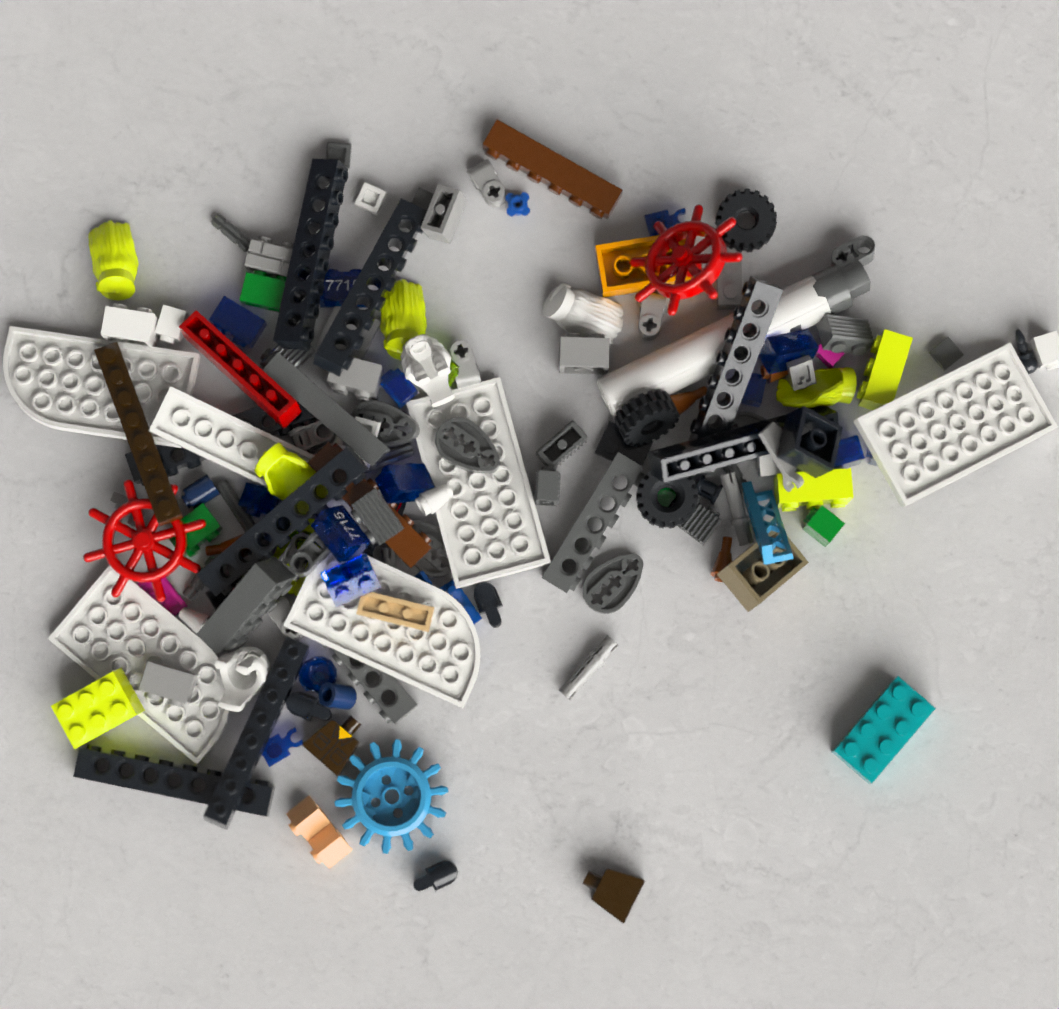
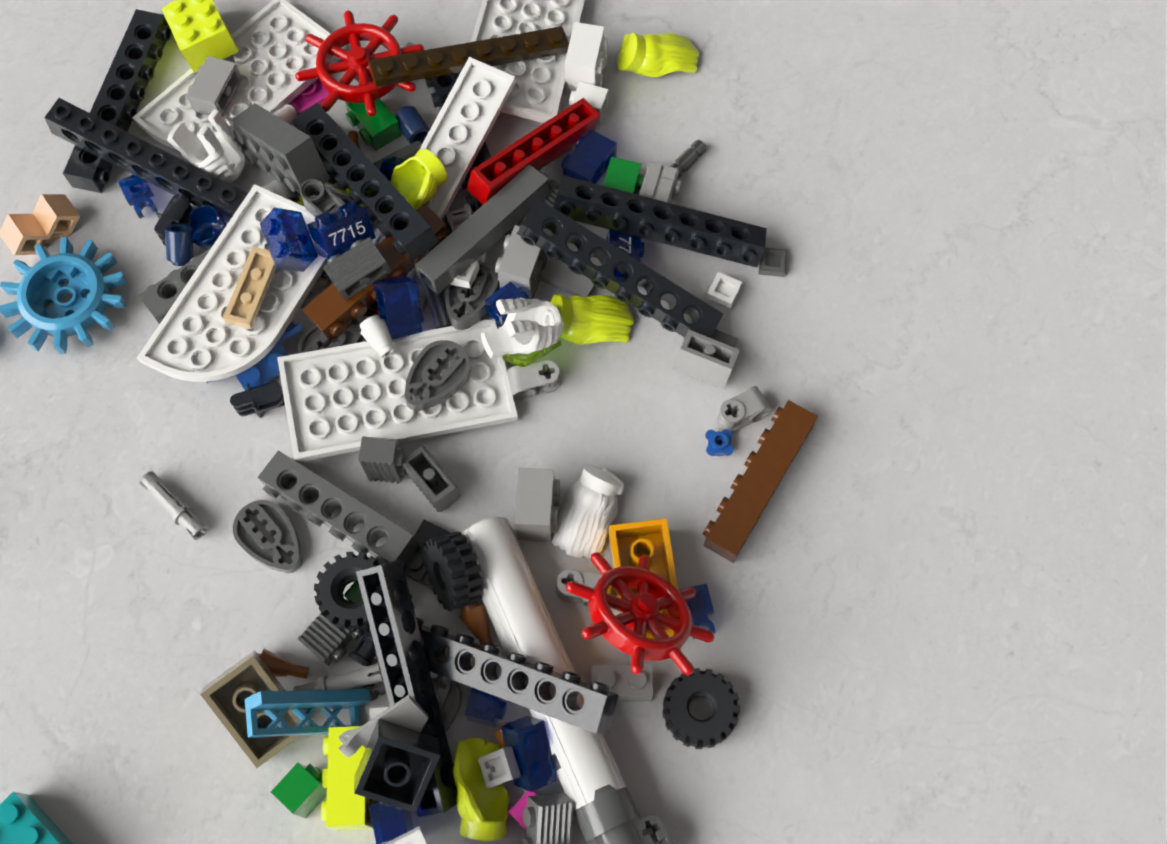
camera: 90 degrees right, 15 degrees down
(334, 744) = (129, 242): dark brown torso -> none

